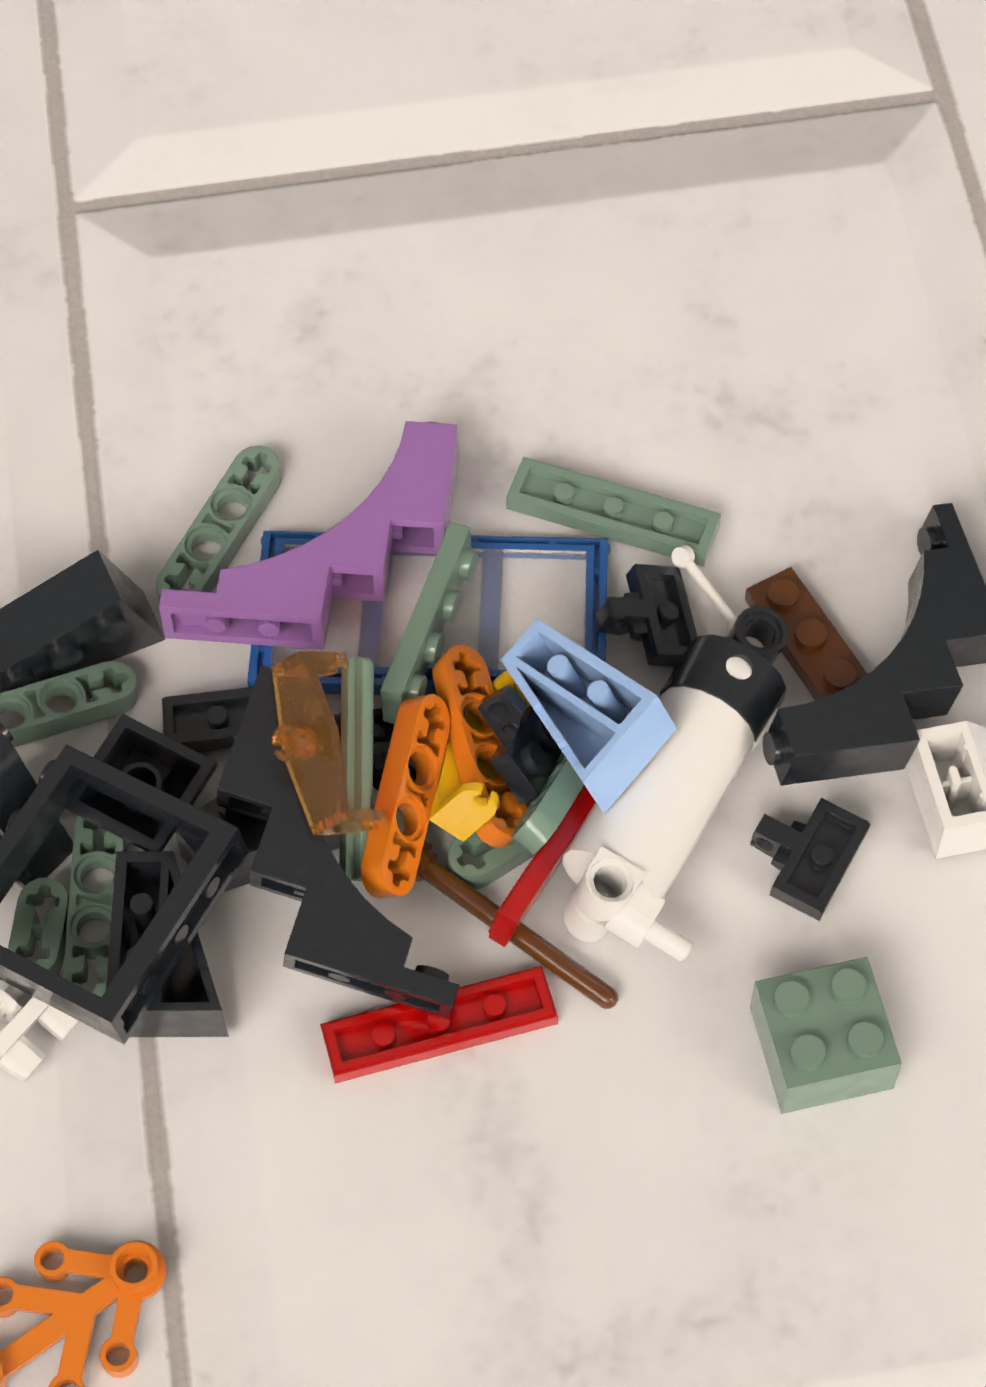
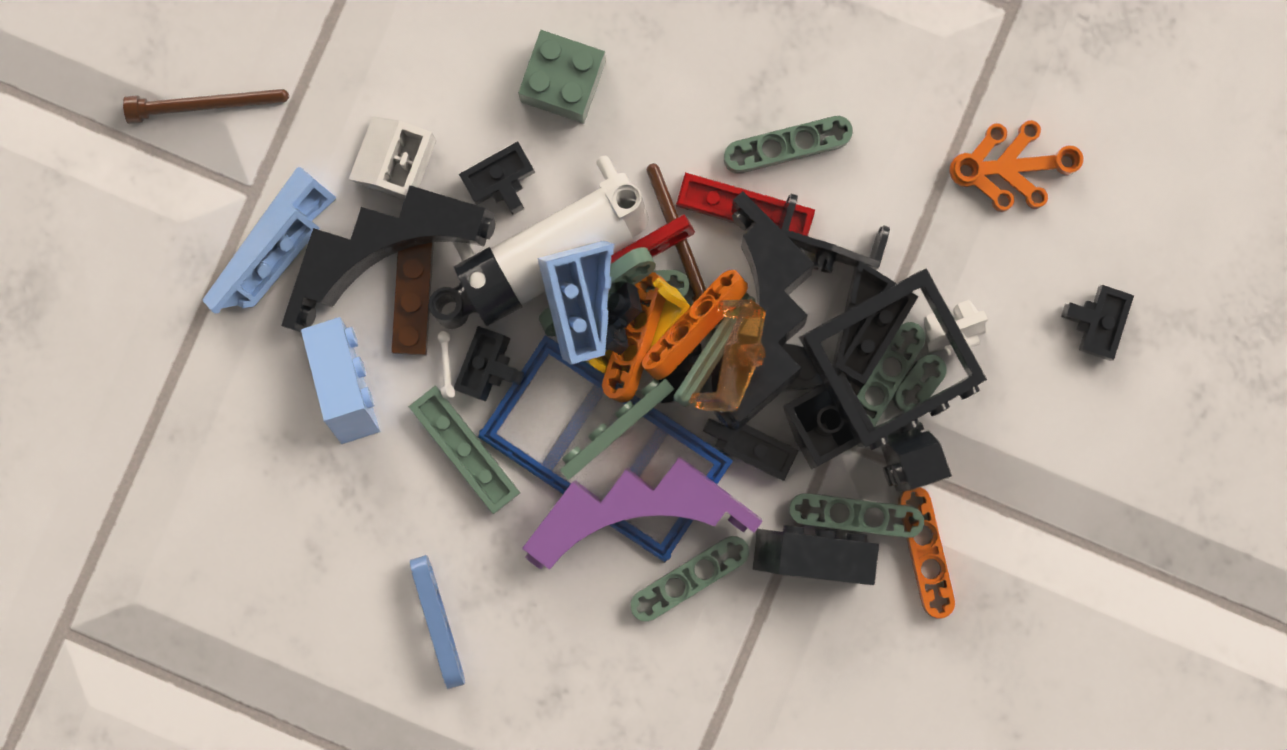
camera: 150 degrees left, 25 degrees up
(277, 1021) = (827, 252): none -> black piece
(426, 1141) = (789, 149): none -> sand green beam
(509, 316) = (437, 622): none -> medium blue beam
(831, 491) = (340, 380): none -> light blue wedge

